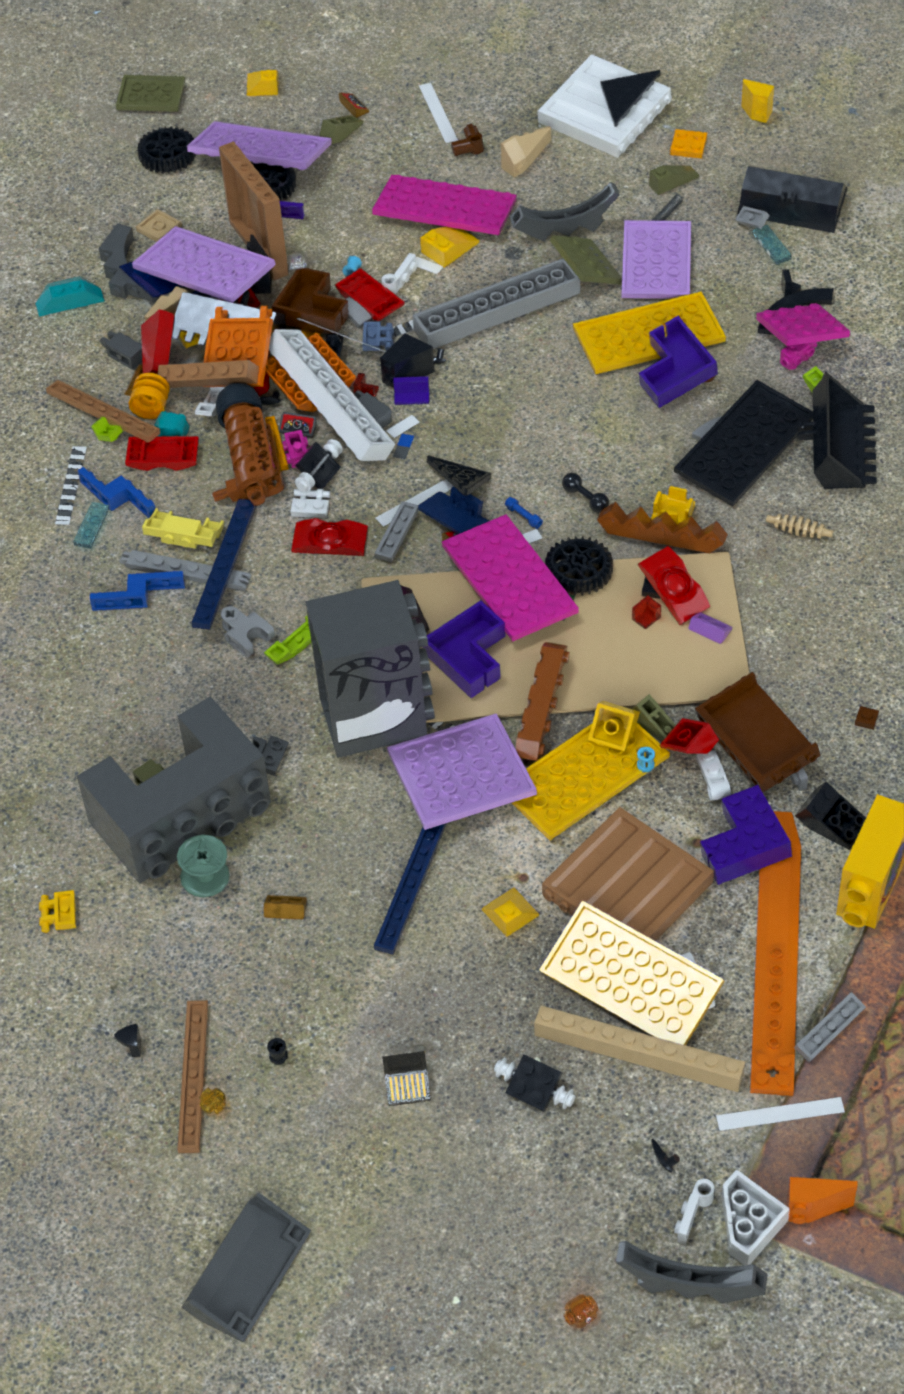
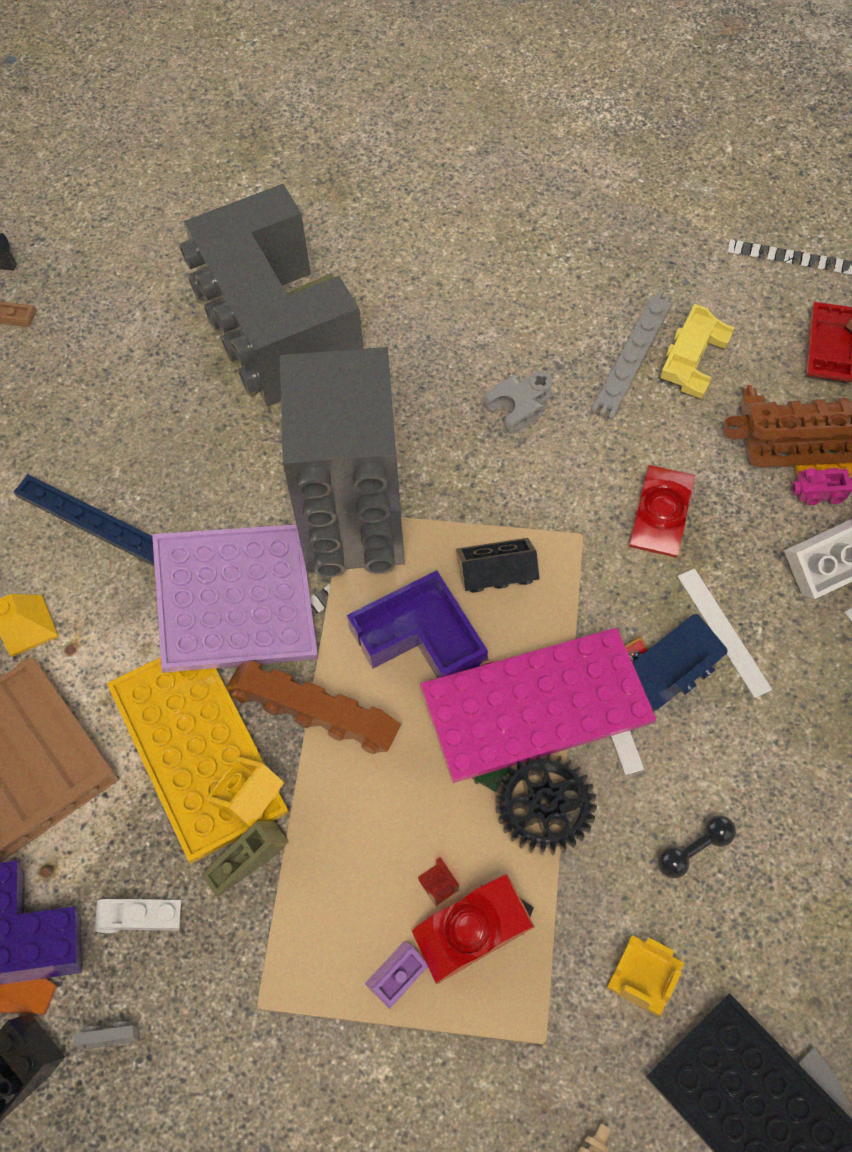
camera: 100 degrees right, 10 degrees up
(64, 911) = (179, 209): yellow plate -> none
(91, 525) = (718, 267): clear light blue plate -> none
(116, 492) = (766, 292): blue bracket -> none
(137, 590) = (605, 303): blue bracket -> none
(203, 865) = (182, 323): sand green piece -> none
(223, 565) = (625, 384): dark blue plate -> none
(285, 907) = (120, 402): pearl gold slope -> none
(291, 645) = (495, 453): lime slope -> none
(310, 507) = (719, 495): white plate -> none
(318, 465) = (783, 502): black plate -> none
(396, 531) = (658, 585): light grey plate -> none
(403, 446) = (826, 621): sticker -> none
(462, 477) = (745, 677): black tile -> none
(534, 520) = (691, 743): blue bar -> none
(641, 763) = (169, 814): medium azure bush -> none
(661, 529) = (599, 946): dark orange brick -> none
(691, 737) = (187, 887): red slope -> none
(757, 733) = (170, 990): reddish brown panel -> none

